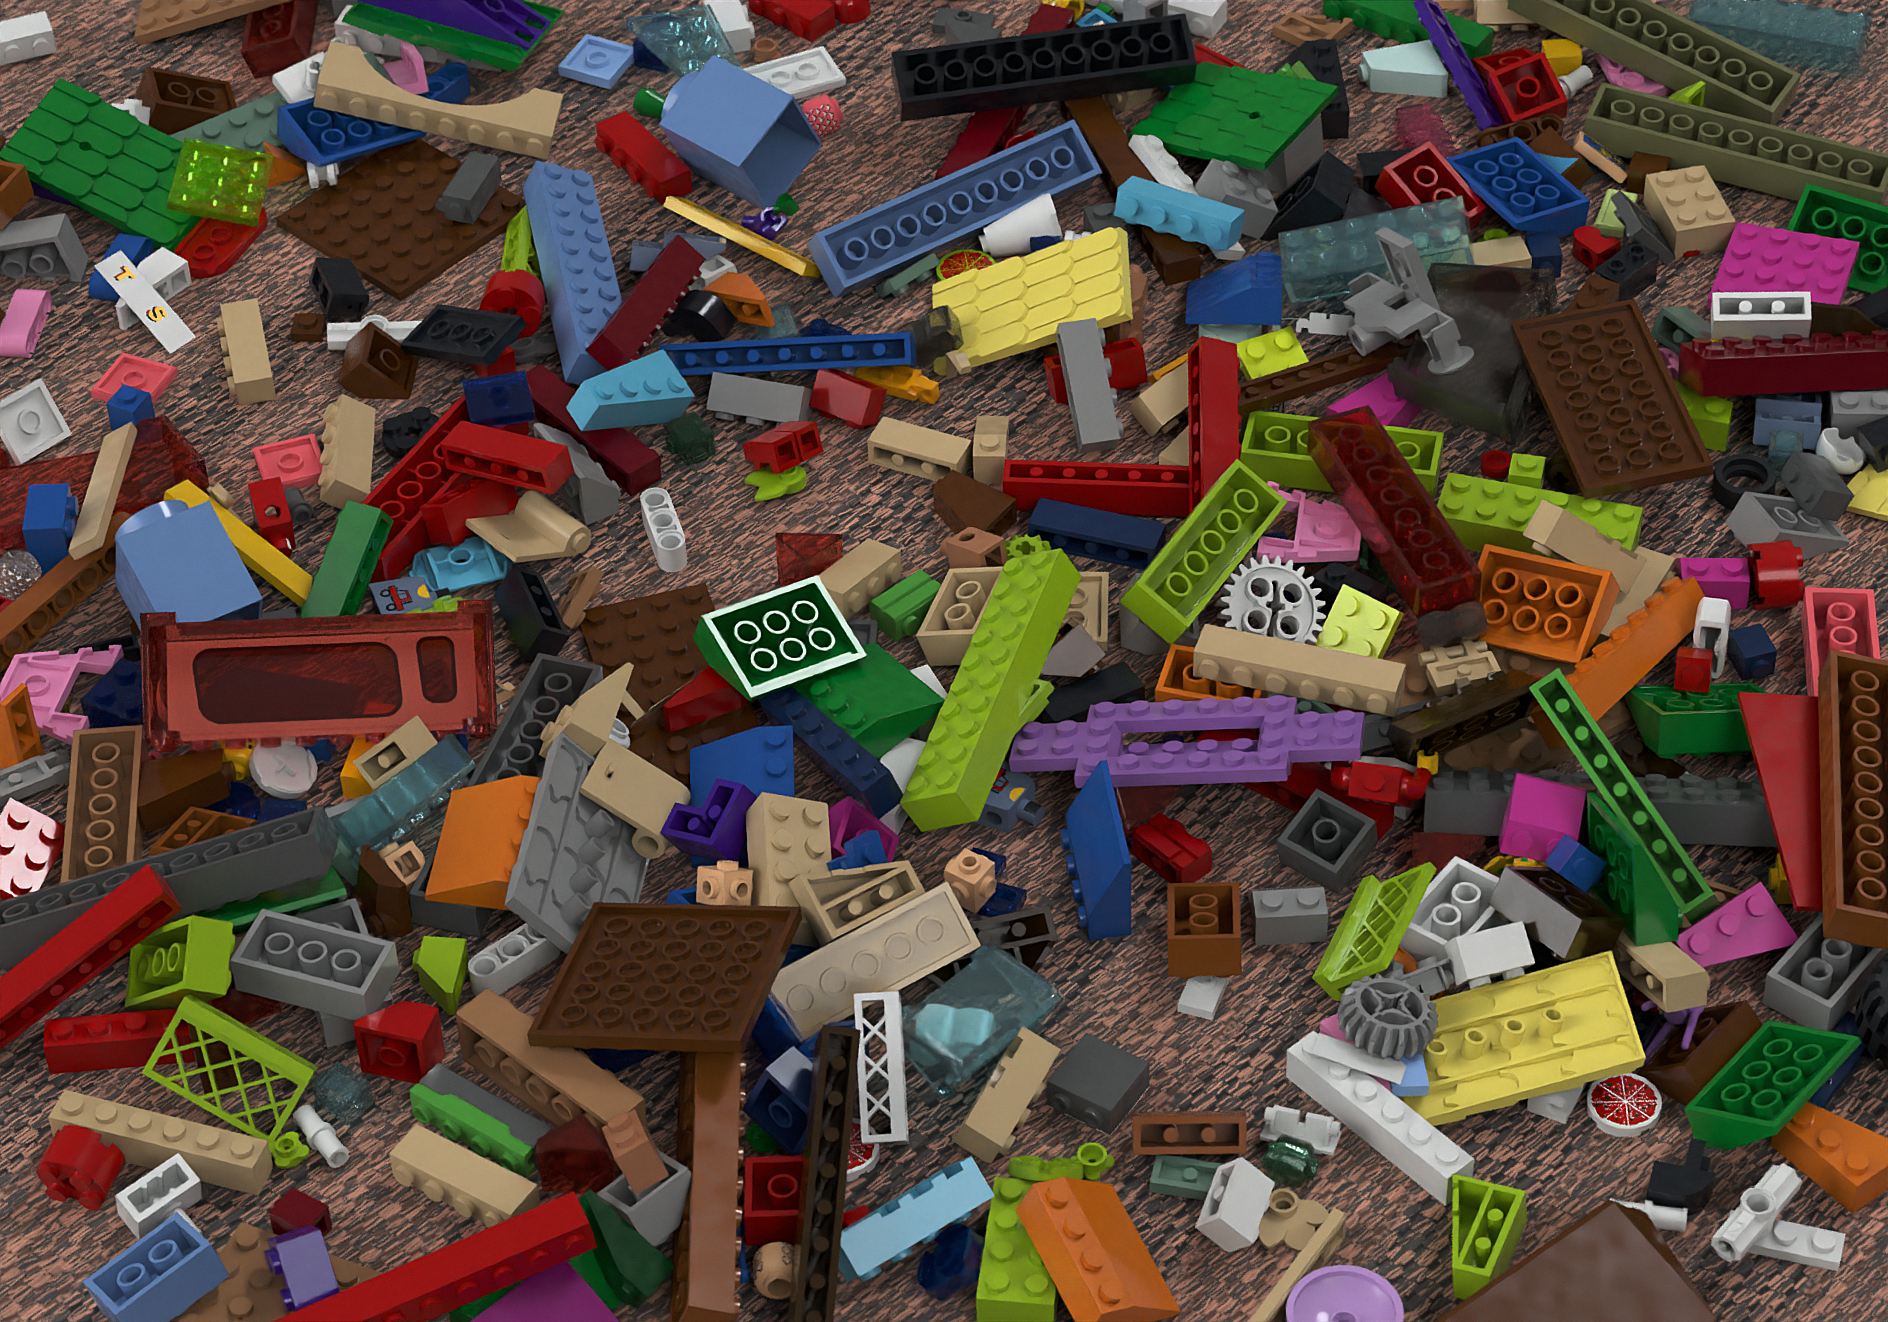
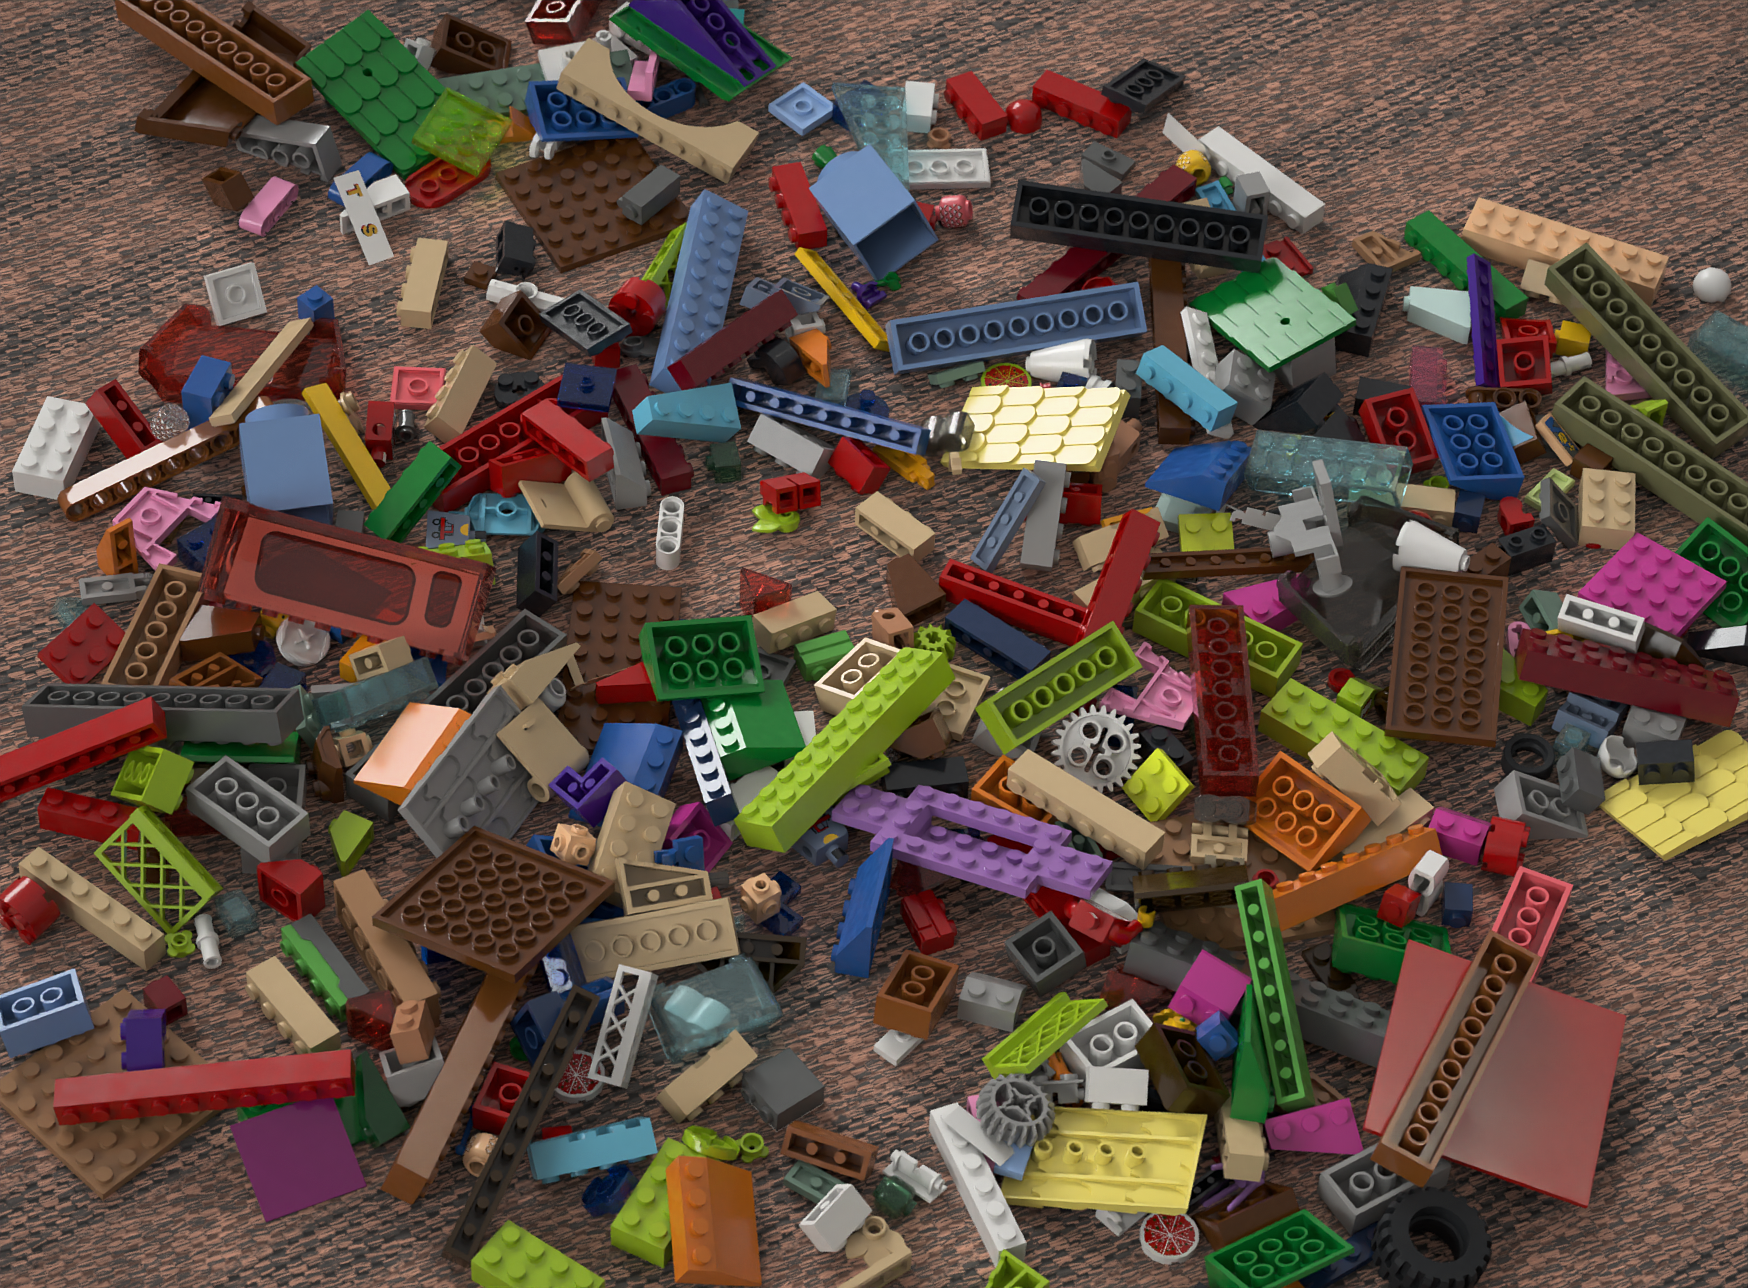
camera: 15 degrees right, 5 degrees up
(136, 373) = (334, 278): coral tile -> none
(158, 1196) = (73, 950): white brick -> none
(510, 960) = (395, 851): white beam -> none
(990, 448) = (951, 540): tan slope -> none
(1051, 399) = (1007, 520): none -> sand blue plate
(1533, 296) = (1428, 550): none -> white cone

